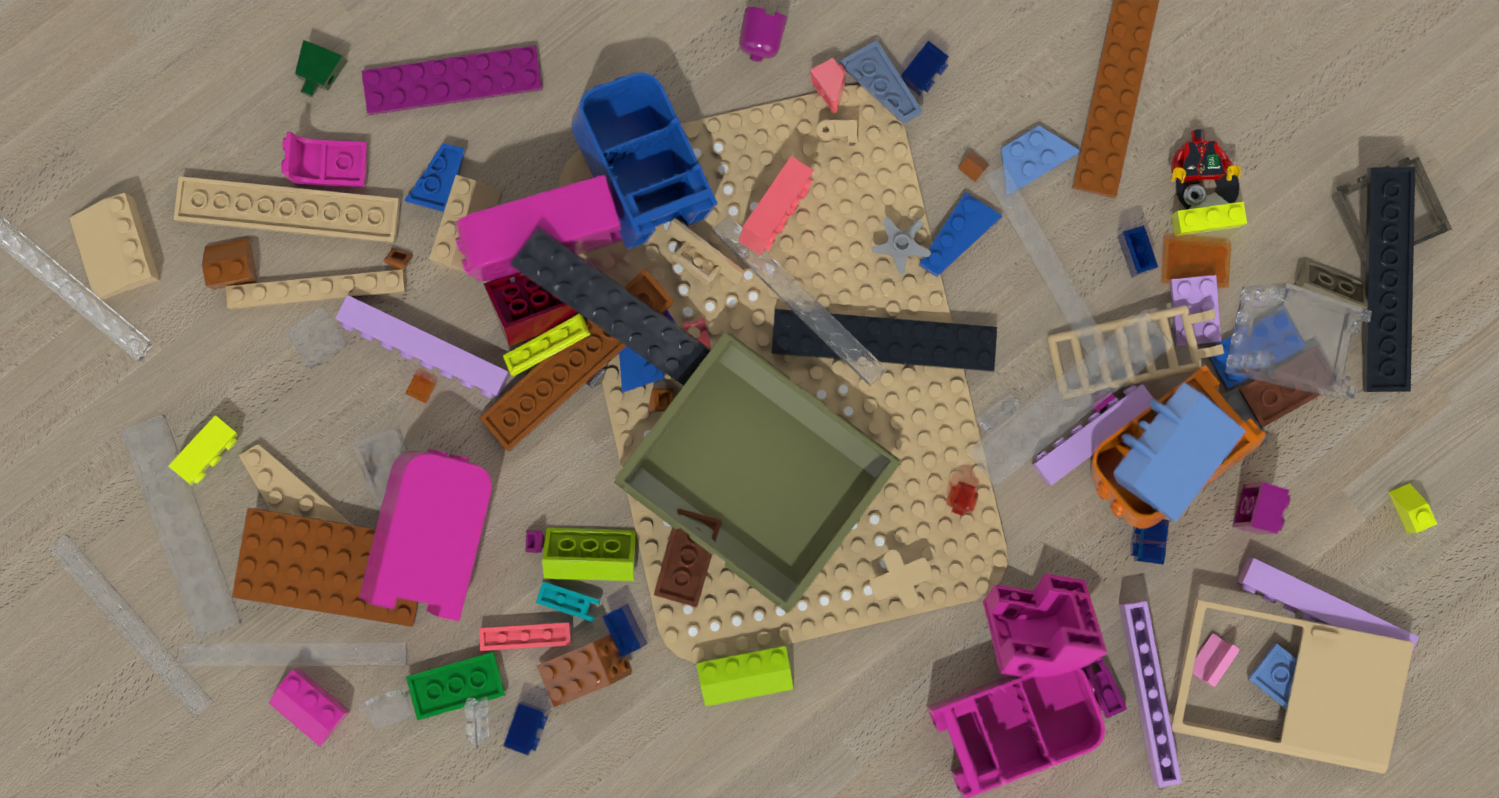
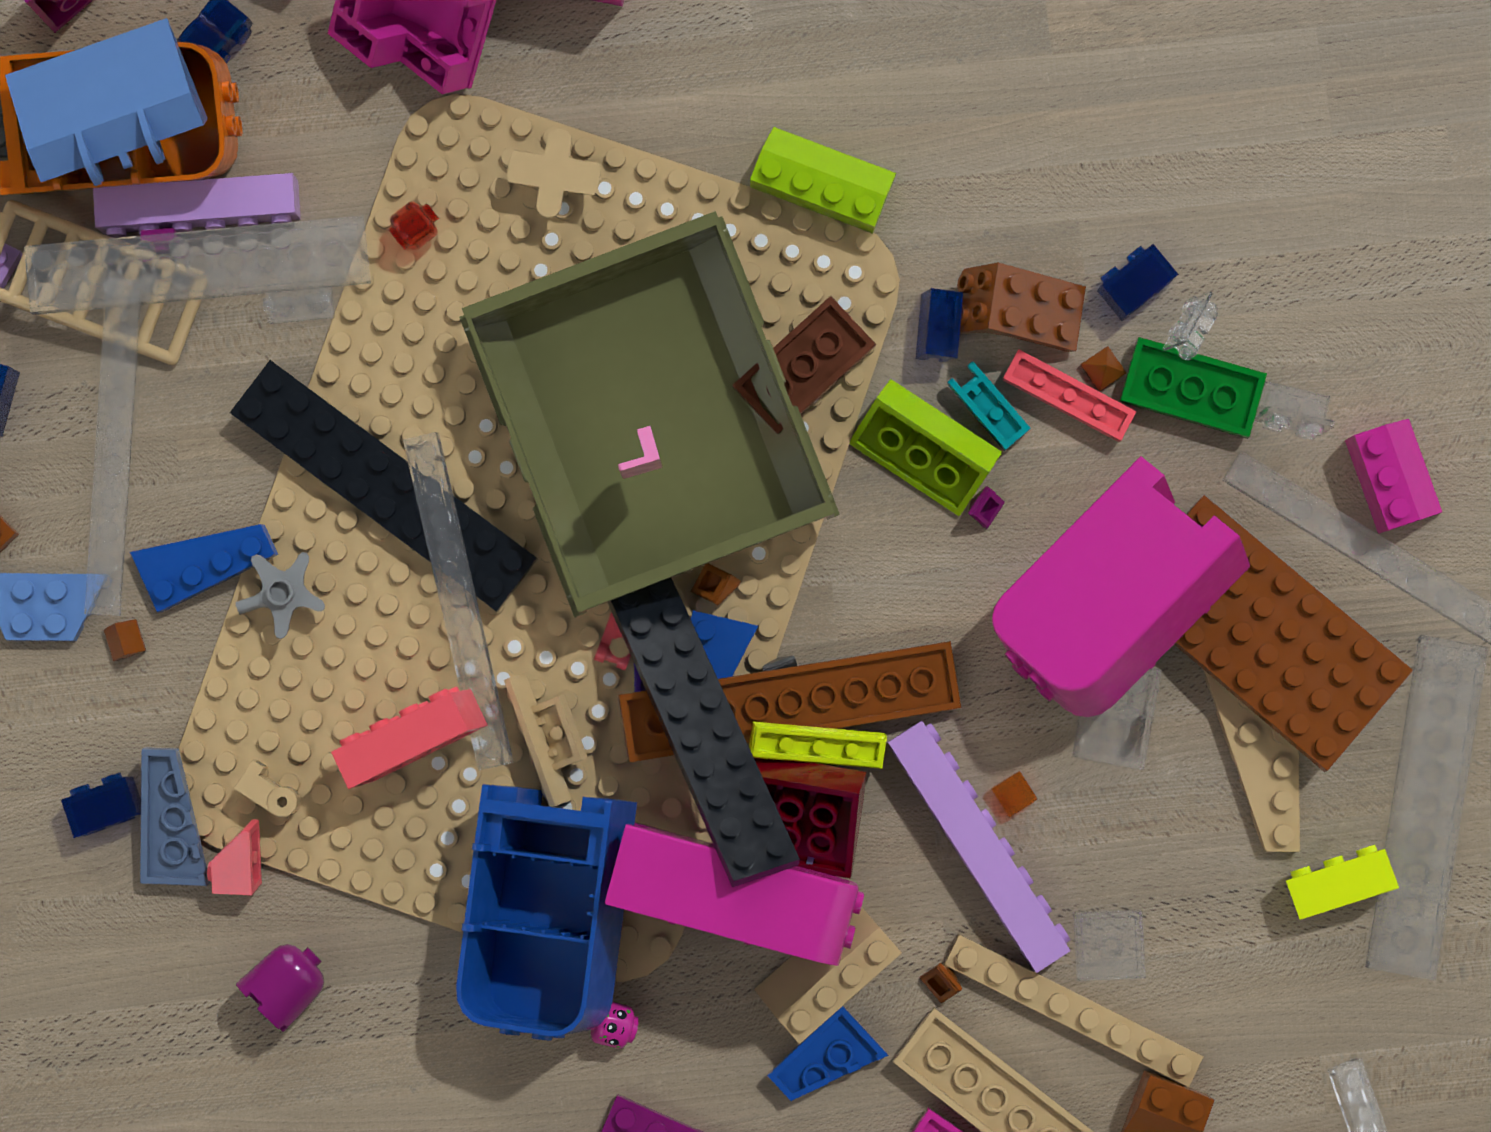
camera: 145 degrees left, 0 degrees up
(515, 665) = (1103, 368): none -> dark orange slope
(562, 124) = (617, 1028): none -> dark pink head
(737, 443) = (649, 462): none -> bright pink panel

